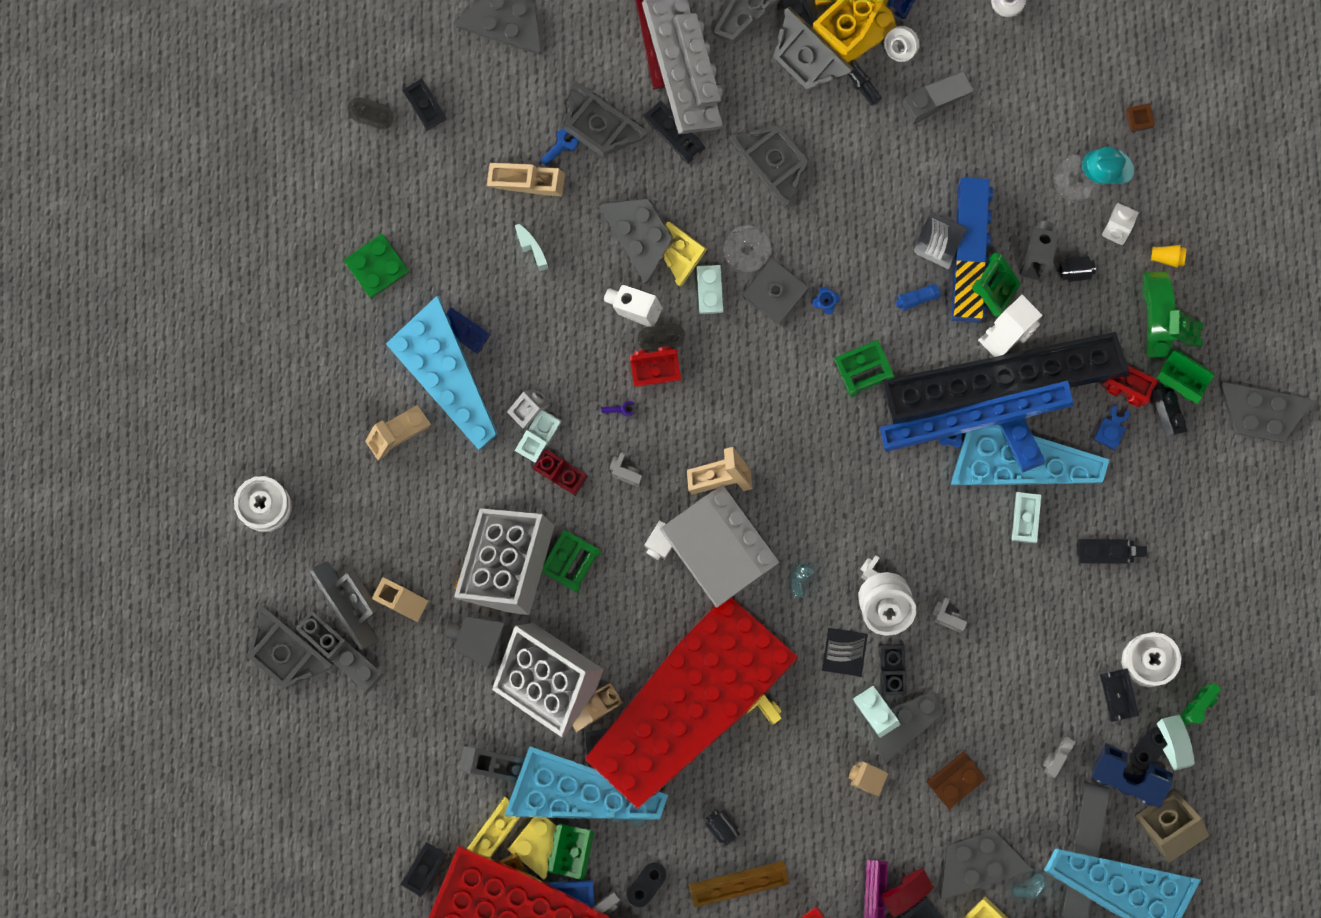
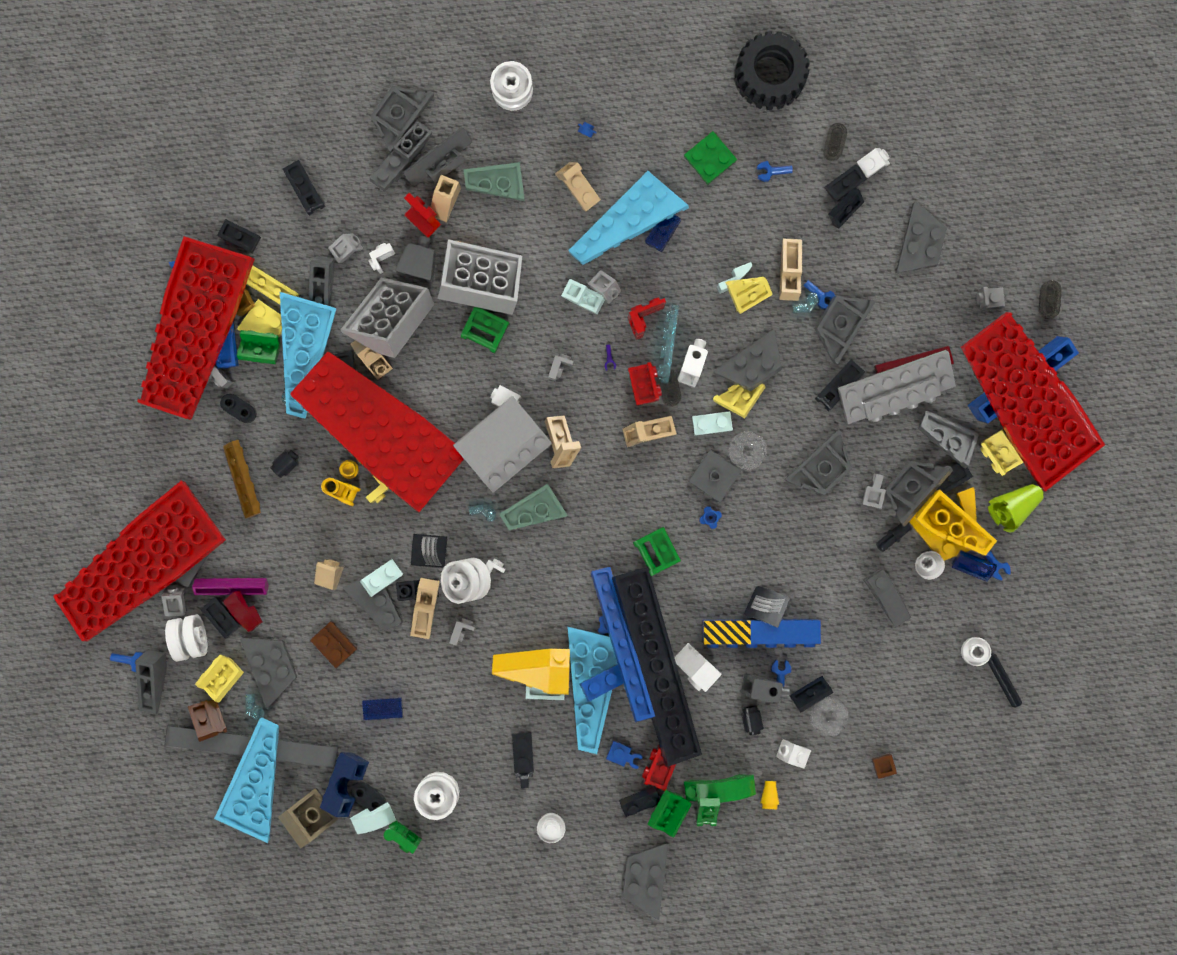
camera: 90 degrees right, 5 degrees up
(259, 156) = (778, 47): none -> black tyre
(326, 415) = (586, 129): none -> blue plate
(367, 781) = (303, 187): none -> black plate
(381, 532) = (496, 180): none -> sand green wing
(399, 190) = (772, 170): none -> blue bar
(400, 68) = (873, 161): none -> white bracket
(421, 630) = (420, 216): none -> red bracket
(450, 731) = (345, 247): none -> light grey bracket
(455, 106) = (846, 207): none -> black plate
(461, 684) = (382, 252): none -> white bracket
(551, 231) = (748, 292): none -> light yellow wing
(560, 472) = (555, 316): dark red slope -> none
(572, 162) = (808, 305): none -> clear light blue arm
(583, 367) = (637, 313): none -> red bracket
(599, 331) = (669, 336): none -> clear light blue plate
(714, 366) = (649, 430): none -> tan bracket
(735, 746) = (349, 469): none -> yellow plate
(763, 755) = (342, 491): none -> yellow piece
(801, 514) = (533, 509): none -> sand green wing
(811, 102) = (874, 495): none -> light grey plate
(917, 297) = (718, 589): blue piece -> none
(917, 659) = (424, 608): none -> tan slope
(1001, 522) = (537, 668): none -> yellow wedge
(1003, 287) = (729, 659): green plate -> none
(1022, 230) = (781, 673): none -> blue bar
(1040, 722) = (382, 708): none -> clear blue plate
(1049, 196) = (811, 694): none -> black plate
(1055, 762) = (351, 722): light grey plate -> none
(1108, 166) = (840, 741): teal piece -> none
(1119, 695) = (408, 771): black hinge -> none
(1197, 522) = (551, 828): none -> white plate

